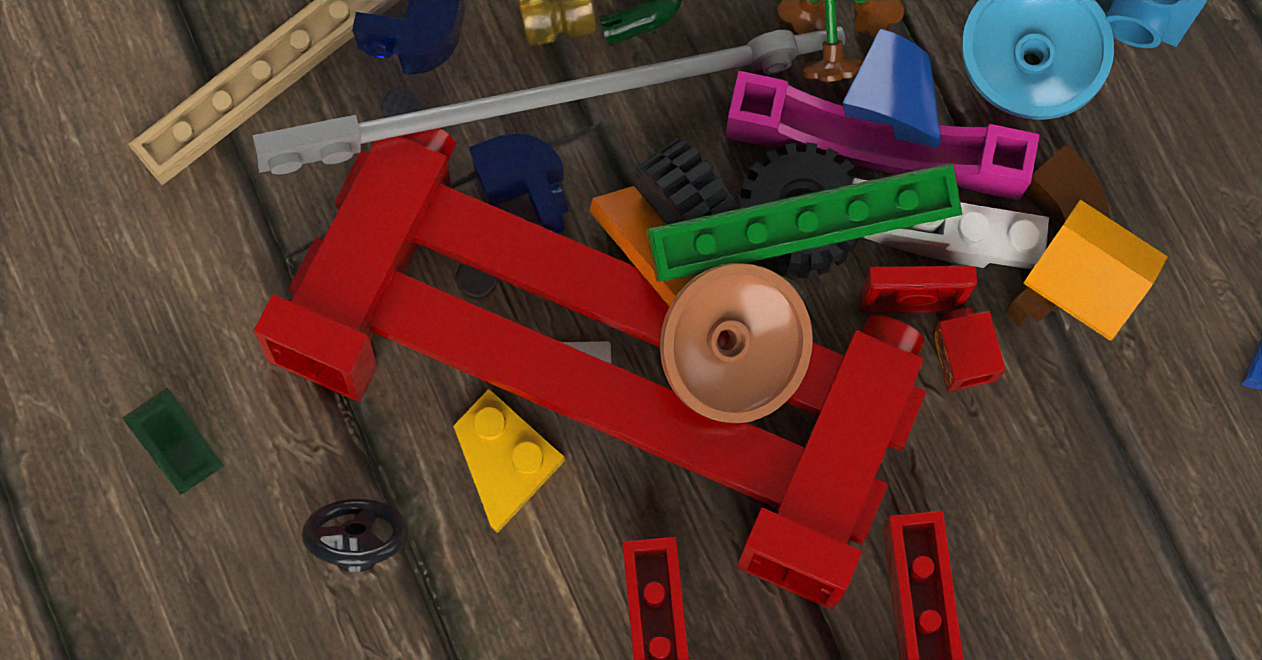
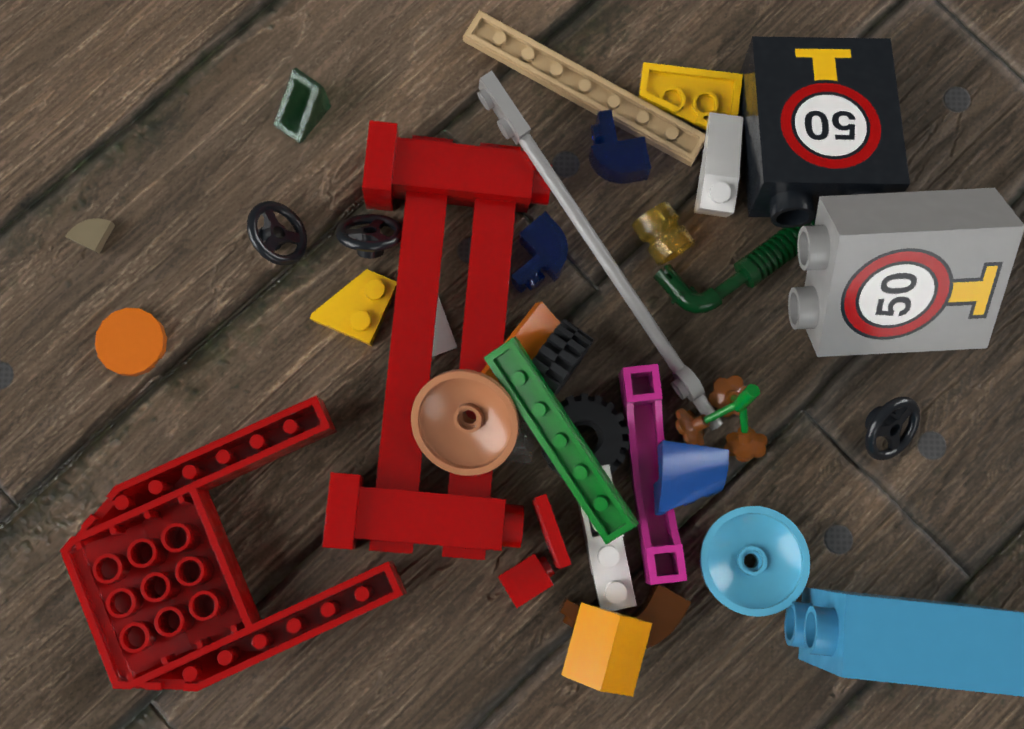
camera: 70 degrees right, 5 degrees up
(414, 406) = (368, 239): none -> black piece

